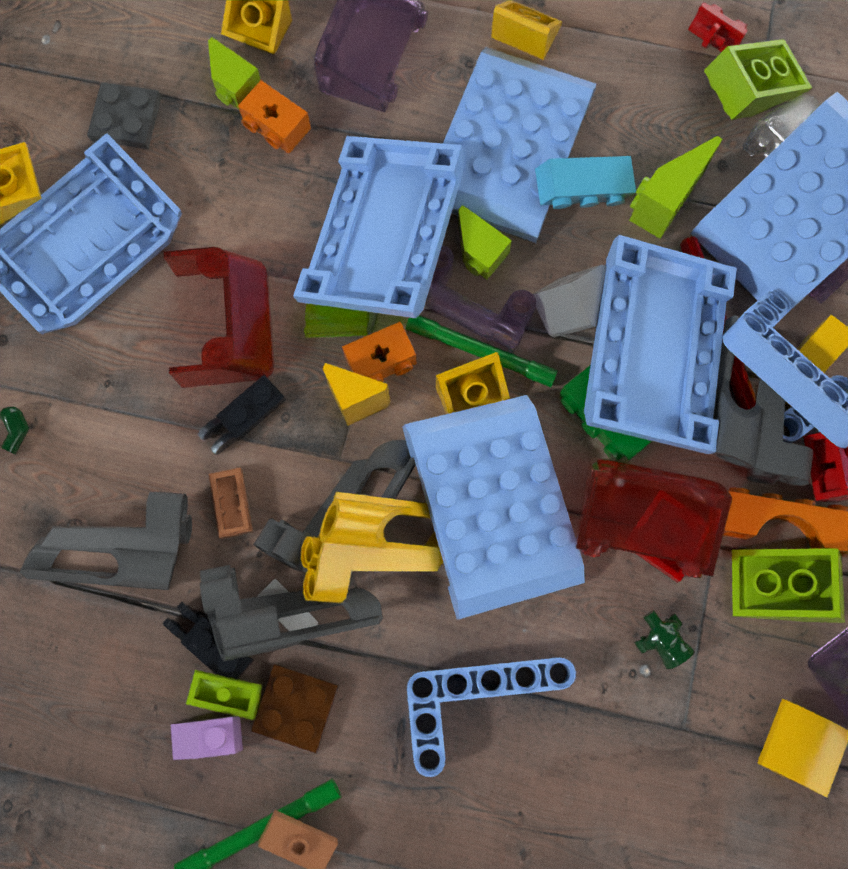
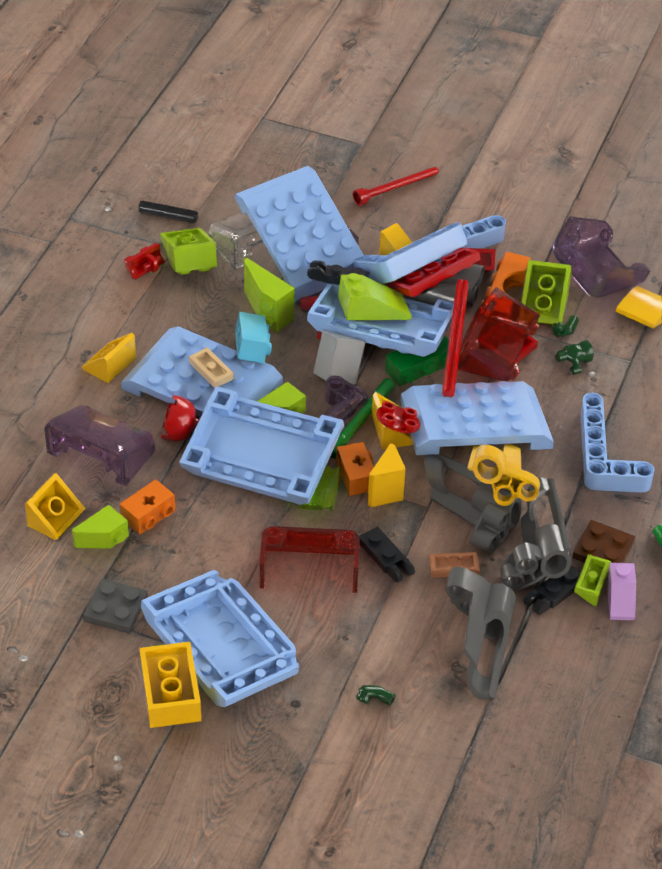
camera: 85 degrees left, 30 degrees down
(422, 120) = (179, 419): none -> red cylinder
(446, 390) = (398, 418): none -> red dish
(507, 137) = (211, 367): none -> tan plate
(628, 451) = (455, 338): none -> red axle
(679, 324) = (369, 300): none -> lime slope
(725, 272) = (331, 273): none -> black hinge
(725, 625) = (563, 330): none -> dark green arm
(763, 408) = (434, 272): none -> red wing
(831, 41) = (168, 211): none -> black axle

